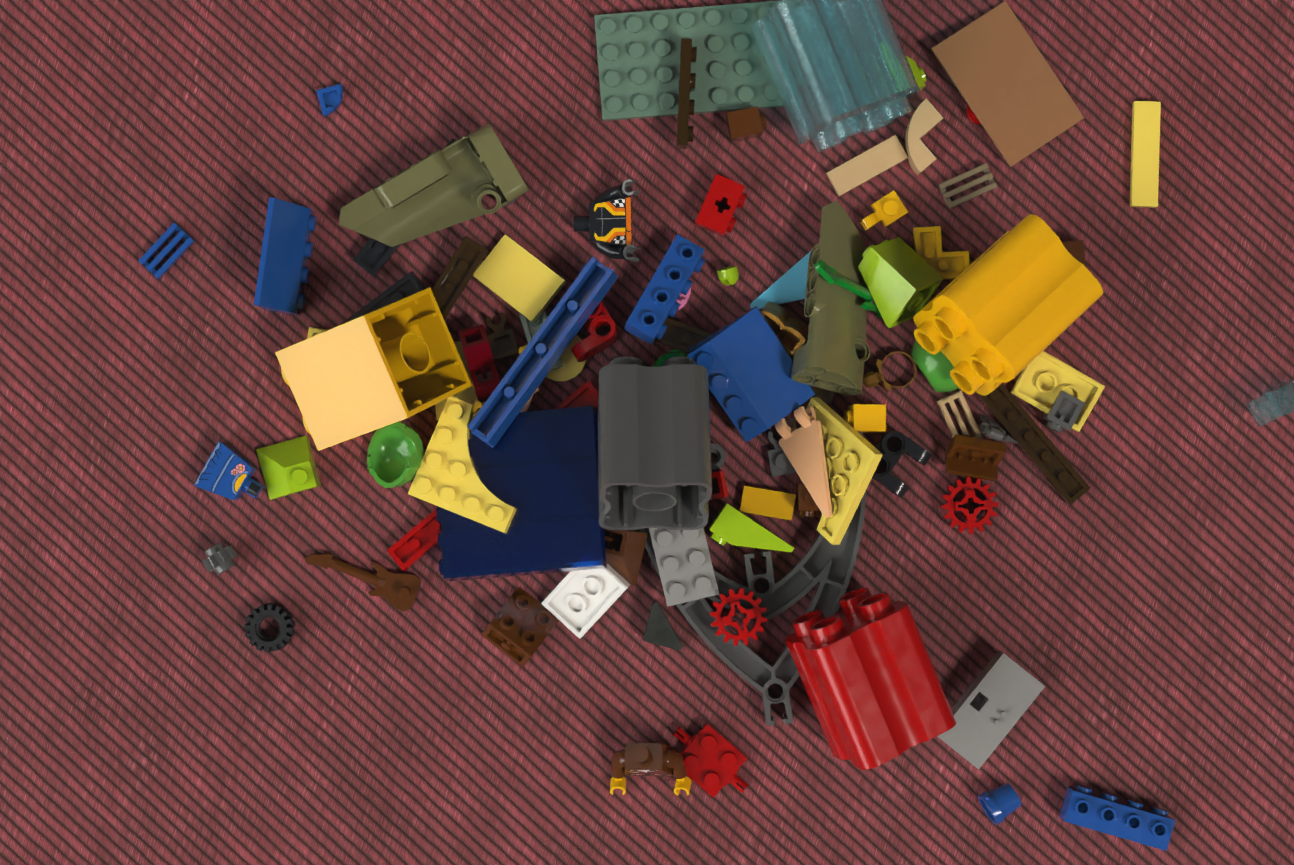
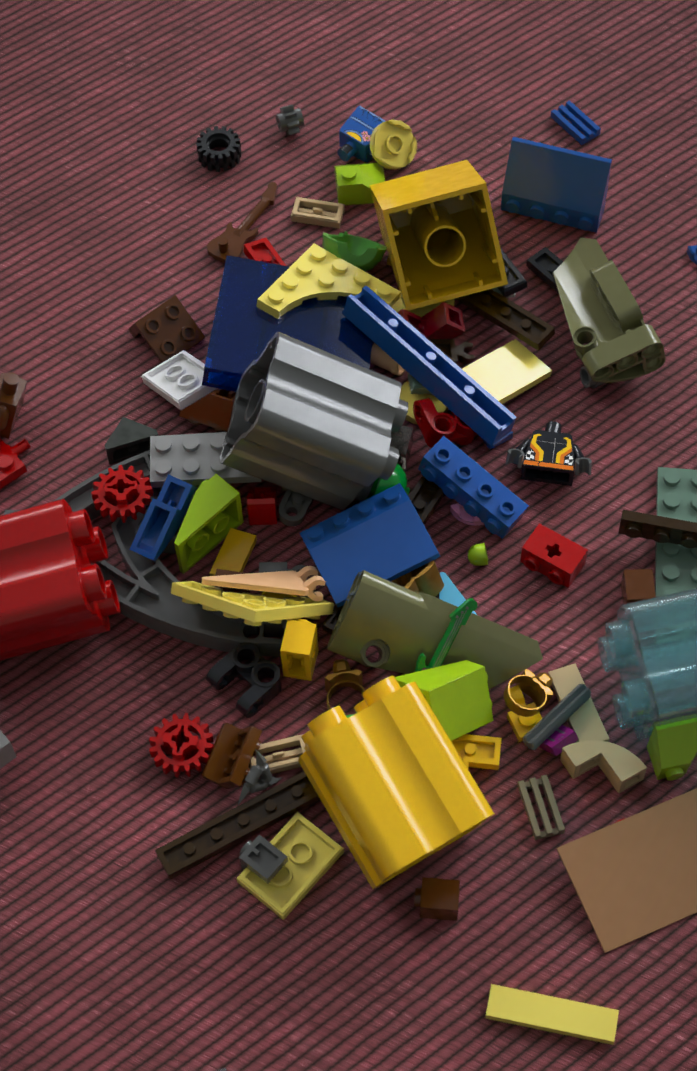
camera: 105 degrees right, 30 degrees down
(240, 439) = (393, 144): none -> light yellow tile
(327, 498) = (317, 215): none -> tan tile
(756, 570) = (163, 518): none -> blue slope
(856, 204) = (534, 686): none -> pearl gold piece
(887, 181) = (556, 716): none -> dark grey axle
(905, 179) = (560, 738): none -> magenta tile

